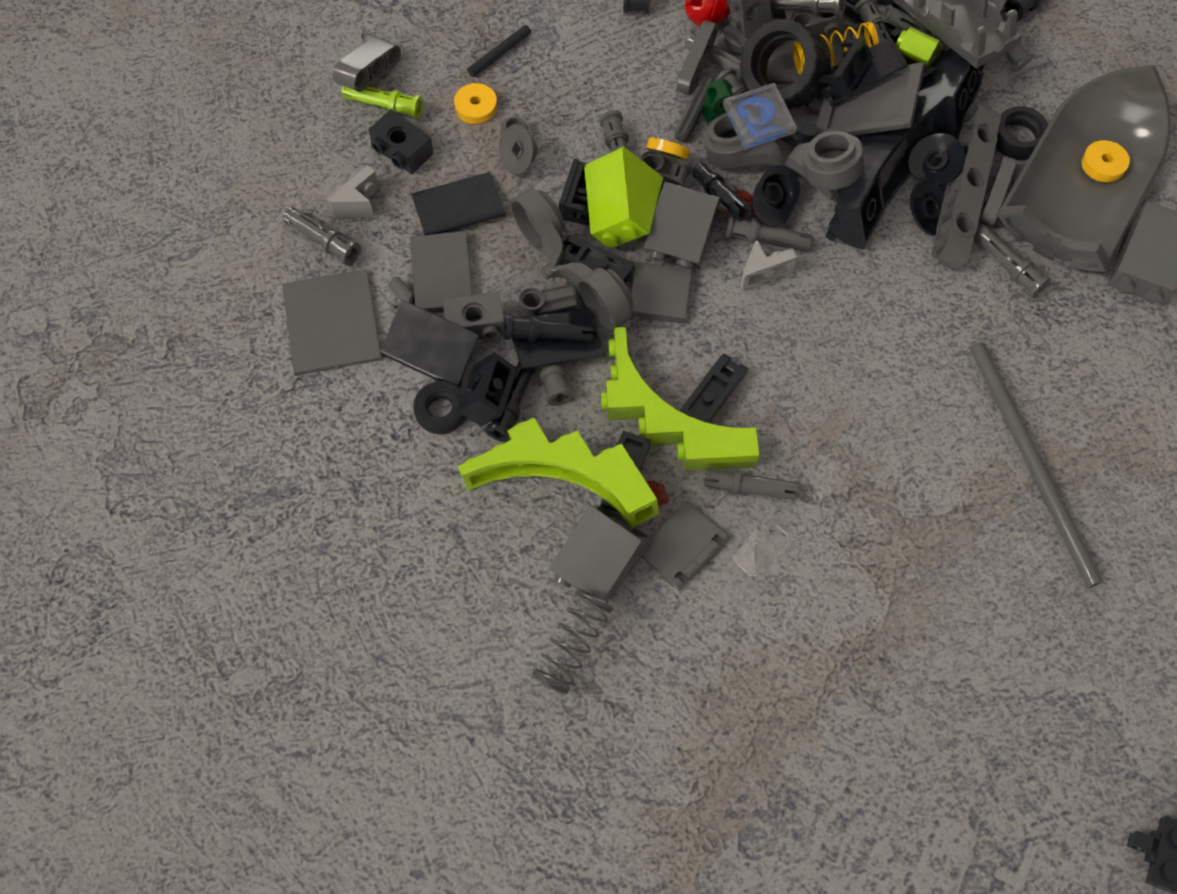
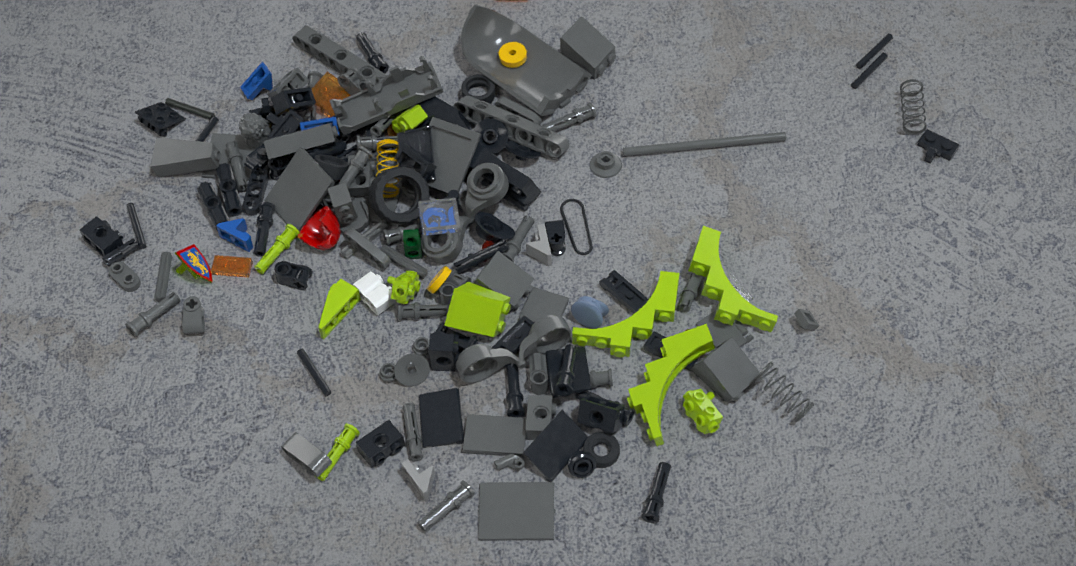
camera: 75 degrees left, 10 degrees down
(408, 382) = (581, 464): none -> black brick
(418, 494) = (655, 499): none -> black pin
(427, 174) = (413, 438): none -> dark grey pin
(471, 112) = (357, 386): yellow piece -> none
(503, 281) = (514, 395): none -> black pin
(531, 524) = (702, 411): none -> lime brick
(547, 170) = (443, 352): none -> black brick
(562, 152) = (419, 342): none -> dark grey plate
(602, 48) = (339, 302): none -> lime slope
(632, 84) = (374, 292): none -> white brick
(642, 110) = (404, 286): none -> lime brick
(661, 346) = (589, 312): none -> sand blue piece
(727, 664) = (806, 319): none -> dark grey plate
(788, 281) = (556, 236): none -> black piece
(789, 489) = (718, 287): none -> lime arch
(866, 301) = (586, 224): none -> black piece
(941, 335) = (608, 169): none -> dark grey piece

